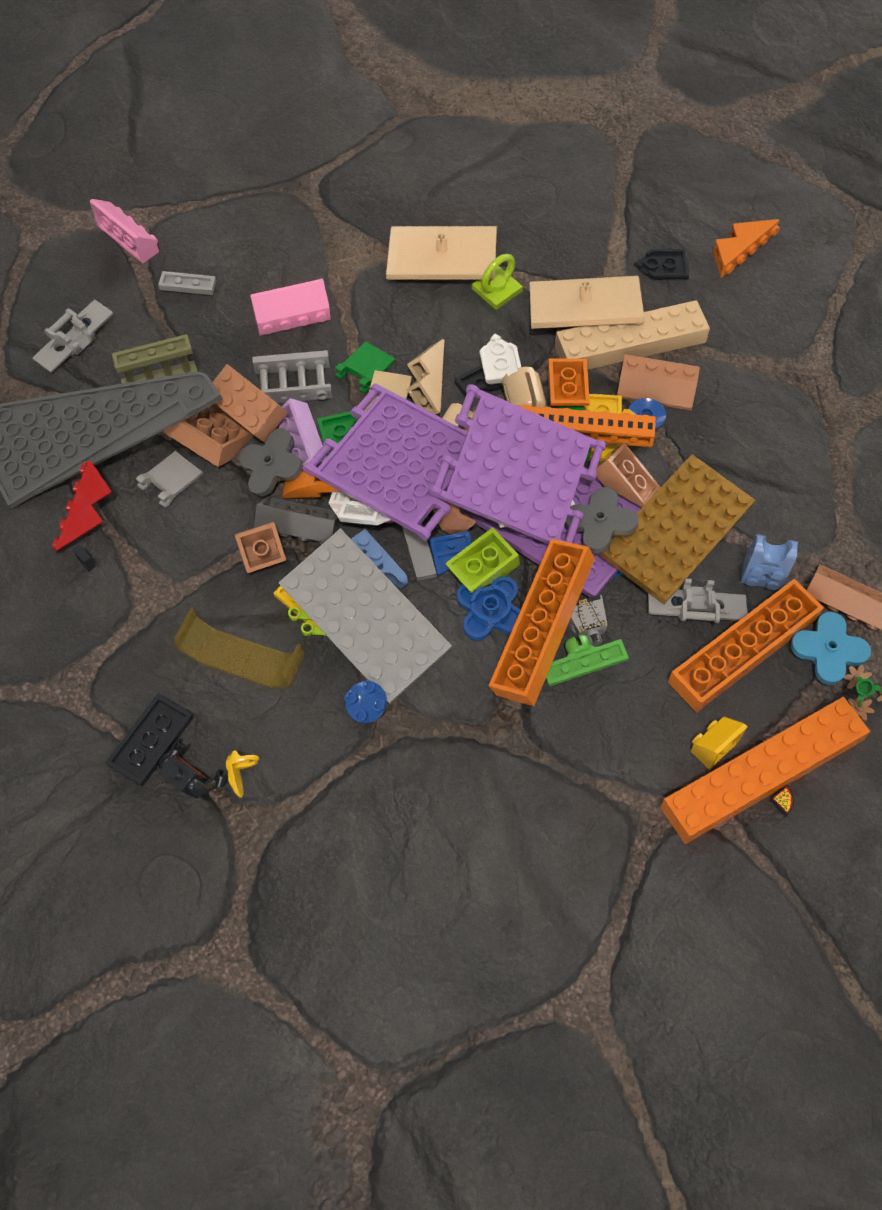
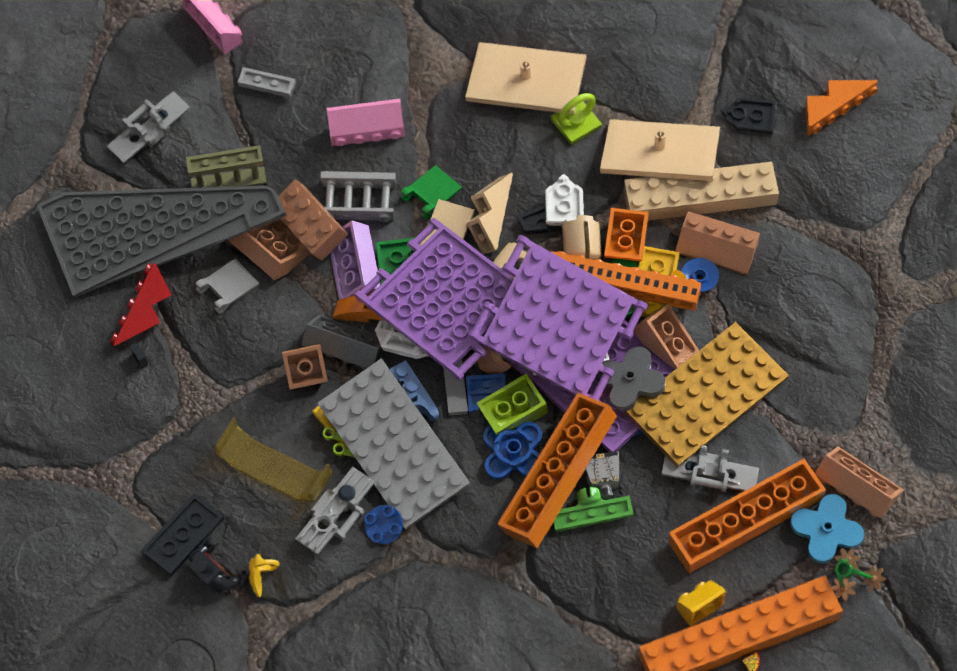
camera: 10 degrees right, 0 degrees up
(271, 462) = (325, 282): dark grey plant -> none
(307, 688) = (330, 506): none -> light grey piece
(767, 563) = (781, 441): medium blue brick -> none

